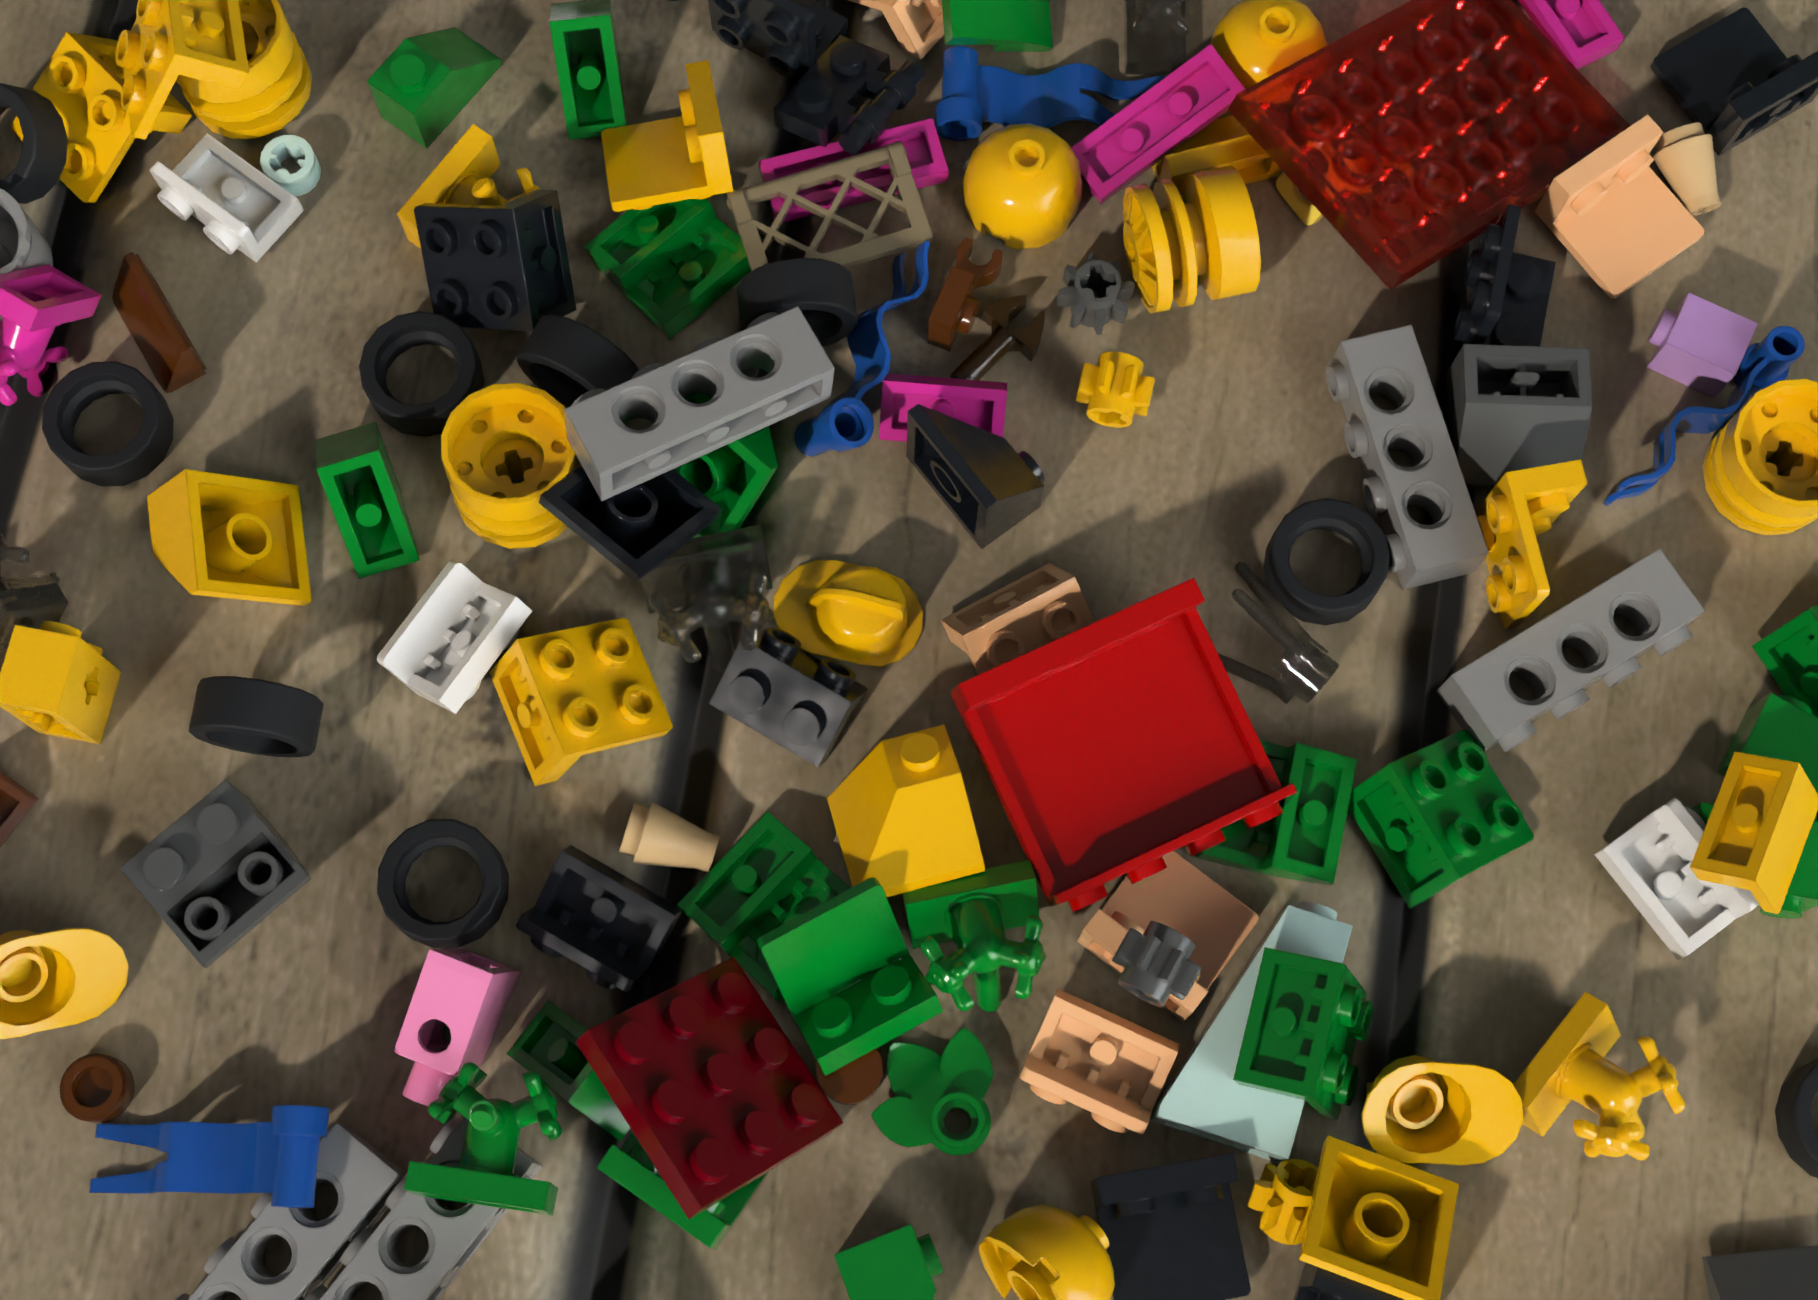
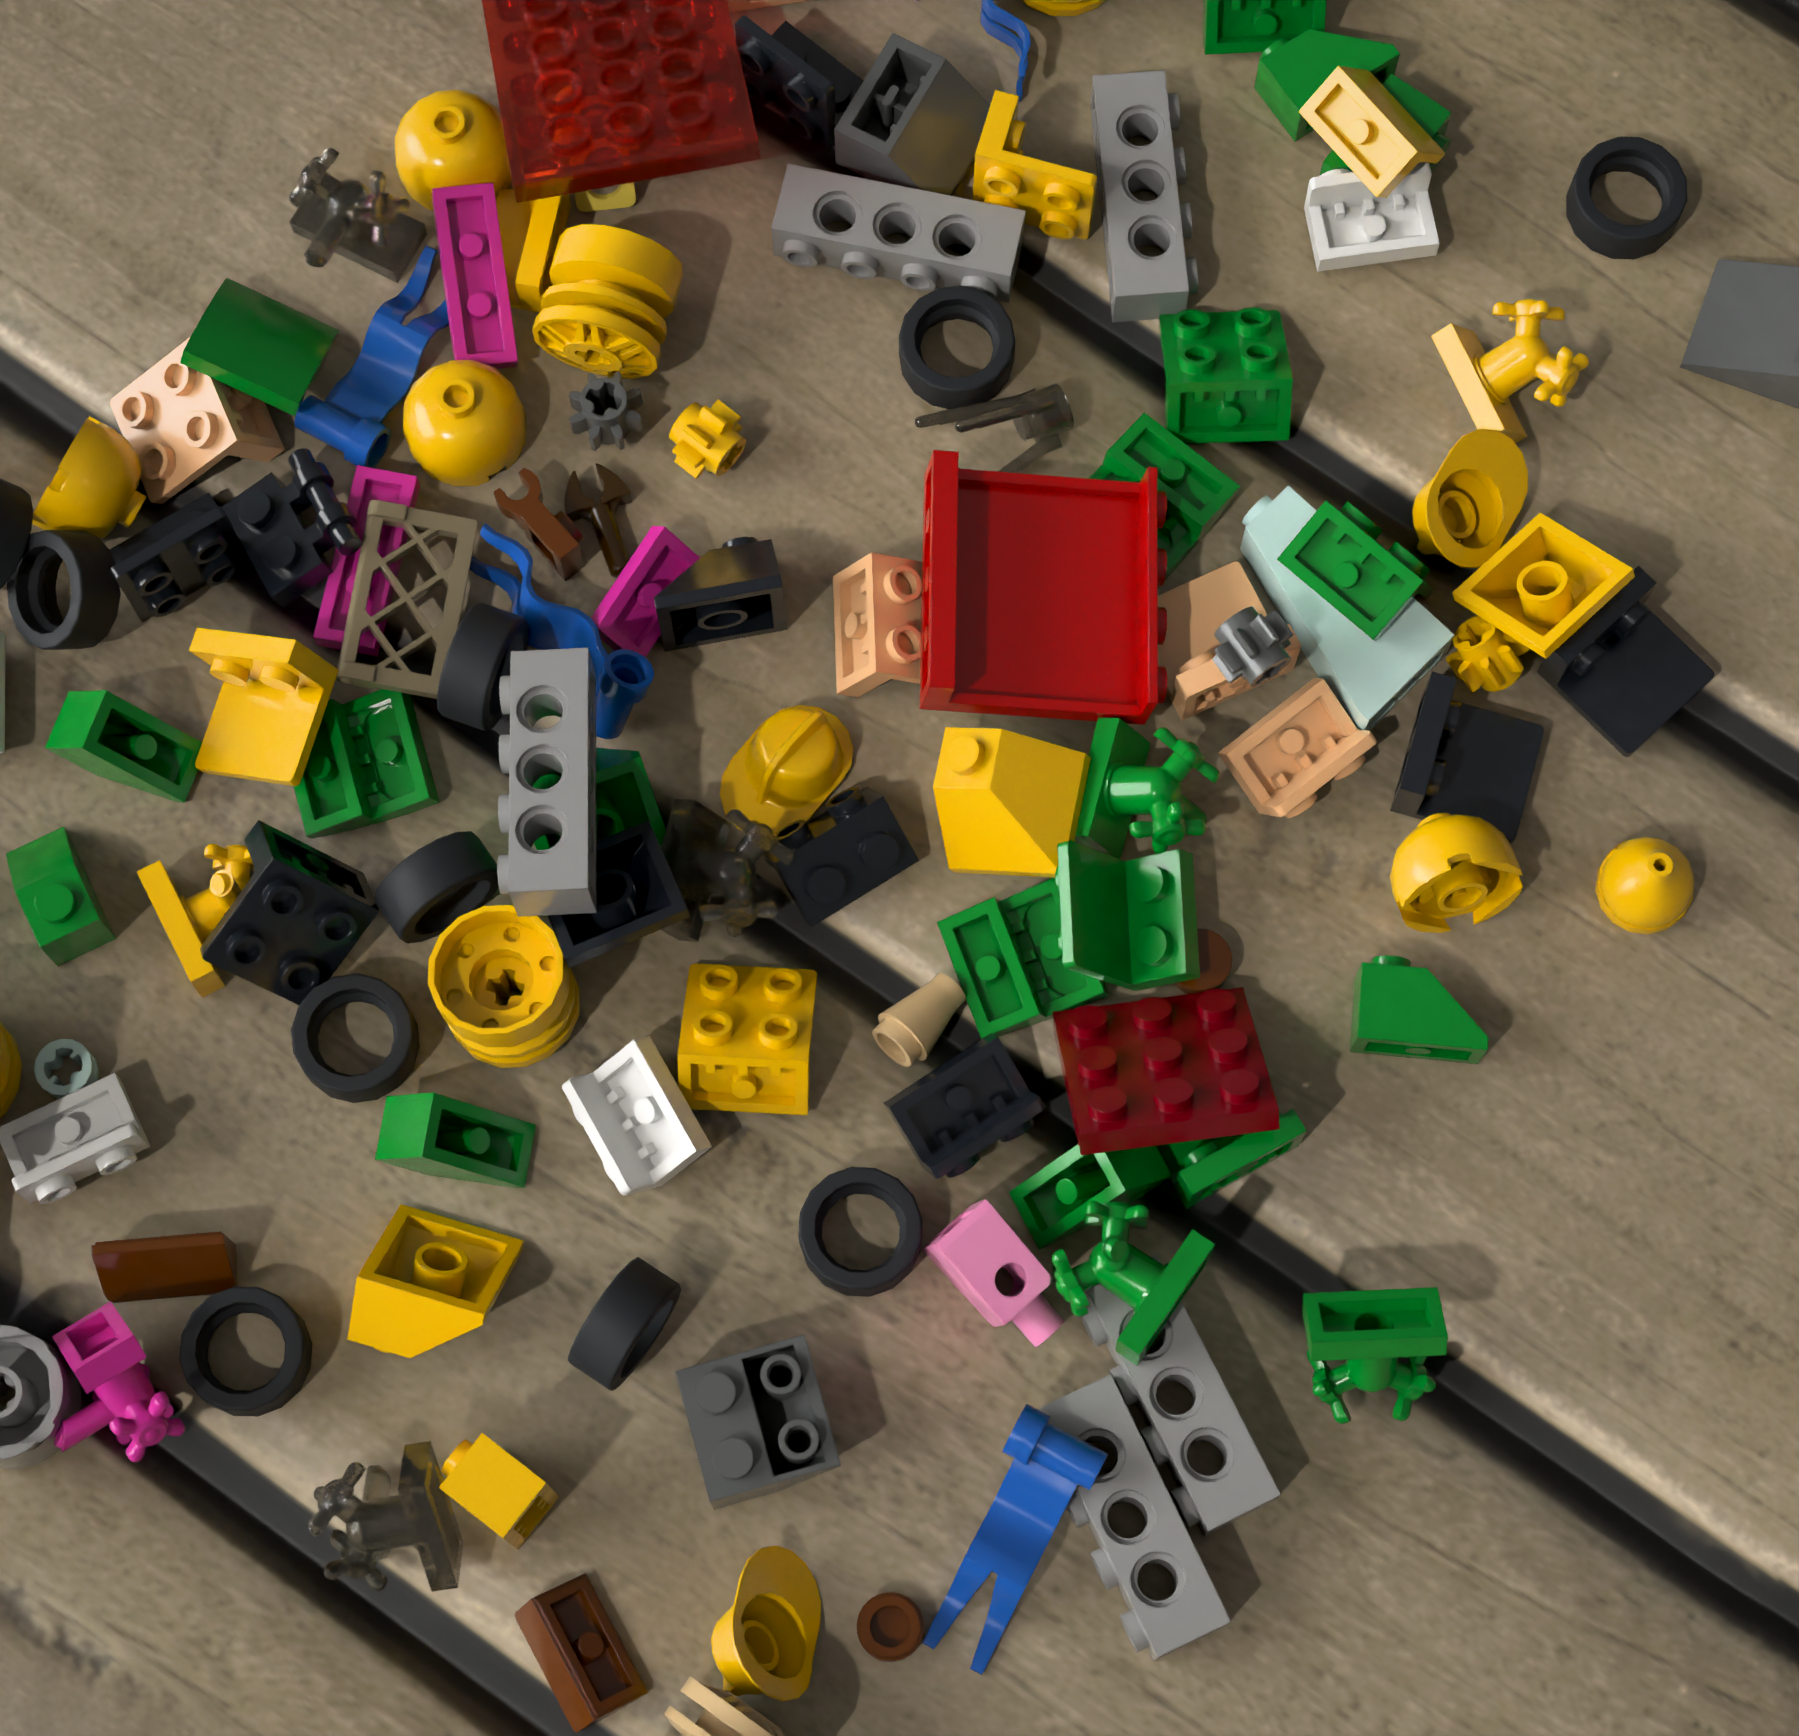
camera: 60 degrees left, 0 degrees up
(931, 1087) = (1247, 898): green plate -> none

